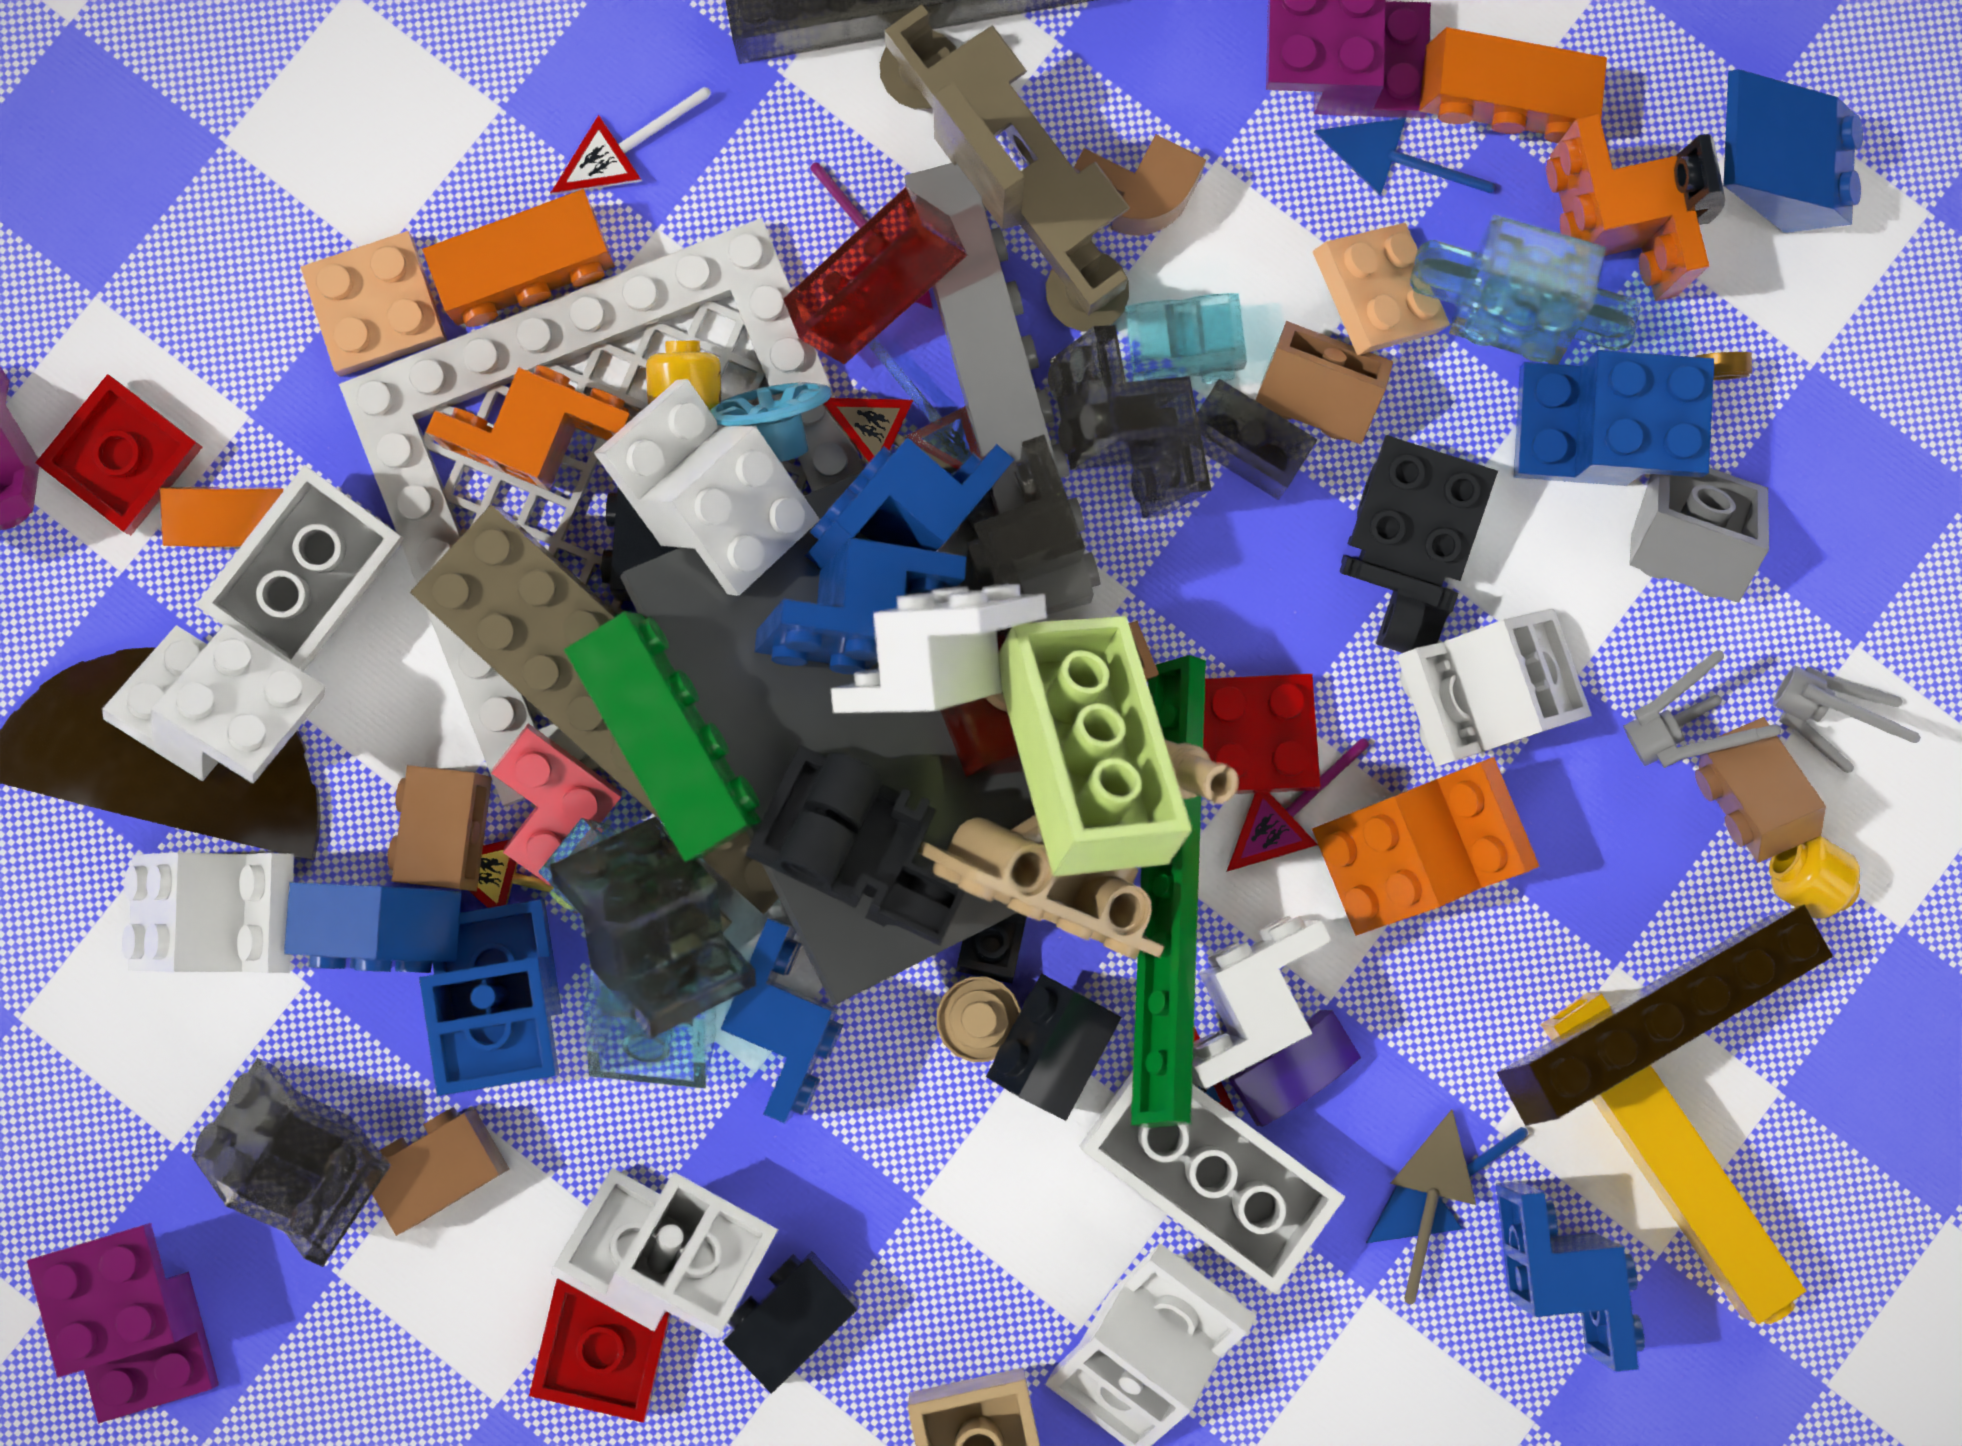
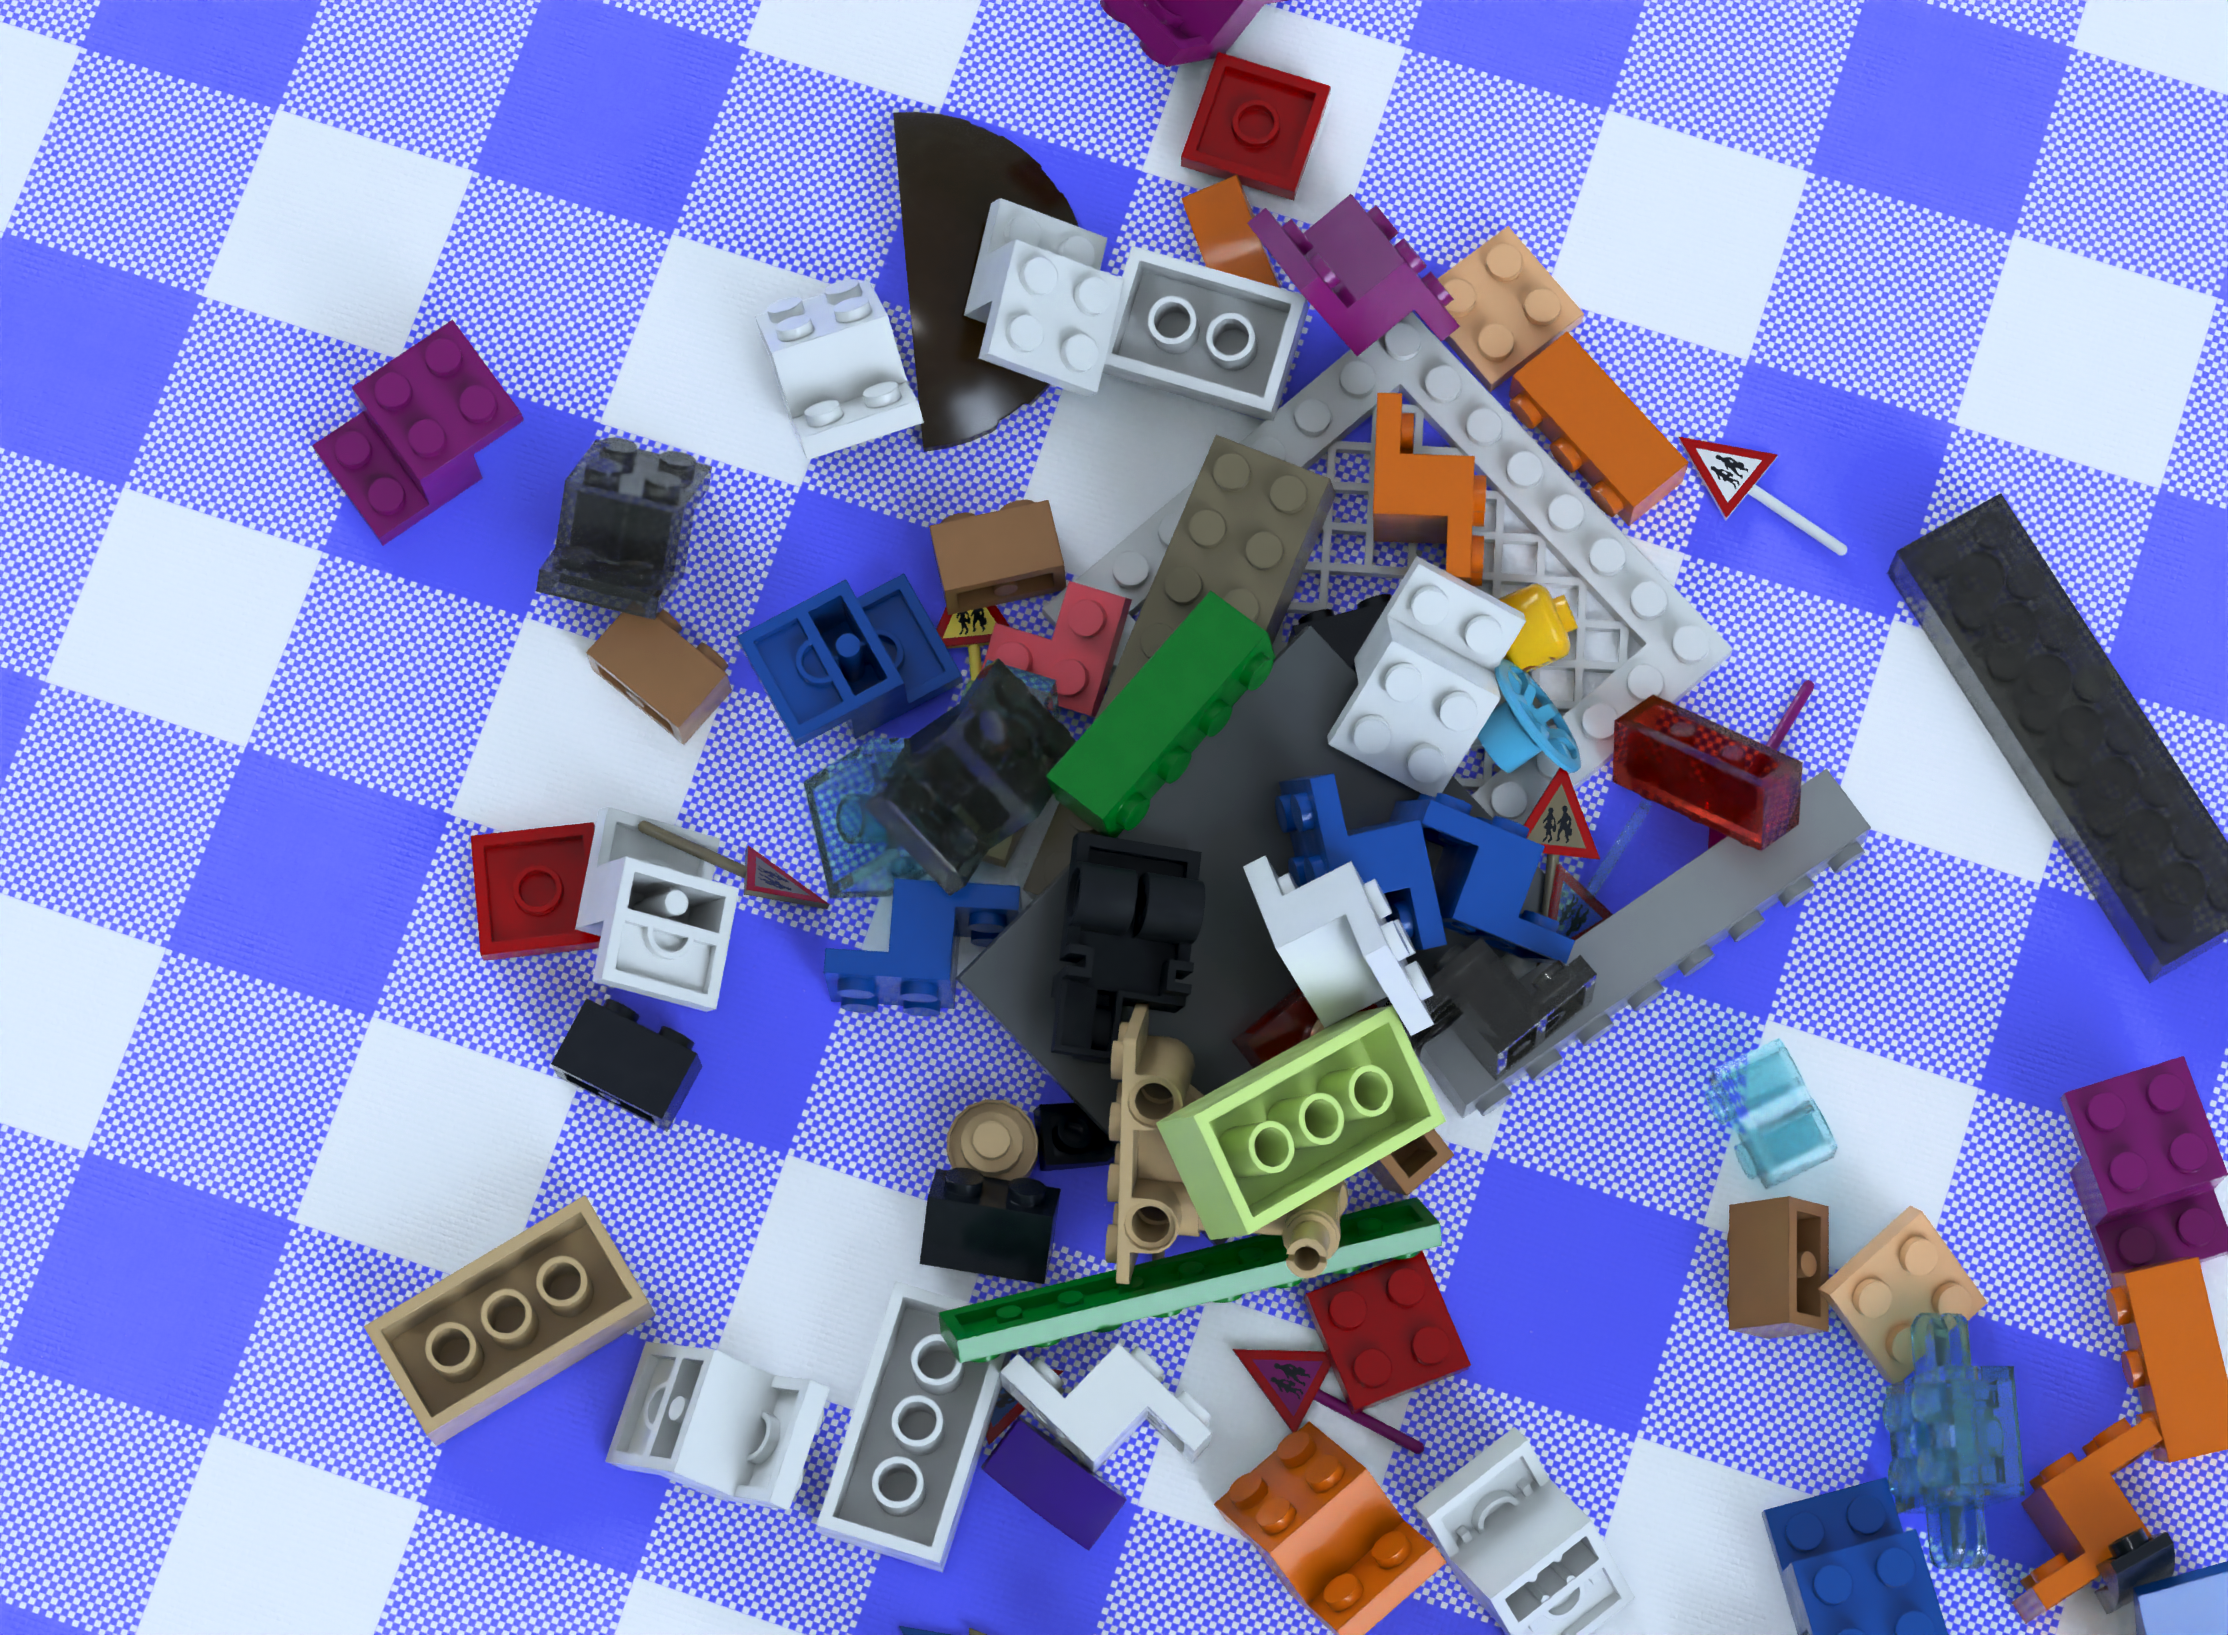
camera: 75 degrees right, 10 degrees down
(298, 412) = (1356, 272): none -> magenta bracket
(372, 926) = (880, 522): blue brick -> none
(660, 1140) = (760, 875): none -> dark tan piece
(1048, 198) = (1851, 926): dark tan piece -> none
(1129, 423) = (1654, 1076): clear smoke bracket -> none
(1157, 188) = (1913, 1030): medium nougat brick -> none
(1252, 439) = (1688, 1211): clear smoke brick -> none
(1372, 149) = (2055, 1246): blue piece -> none
(1413, 532) = (1657, 1418): black plate -> none

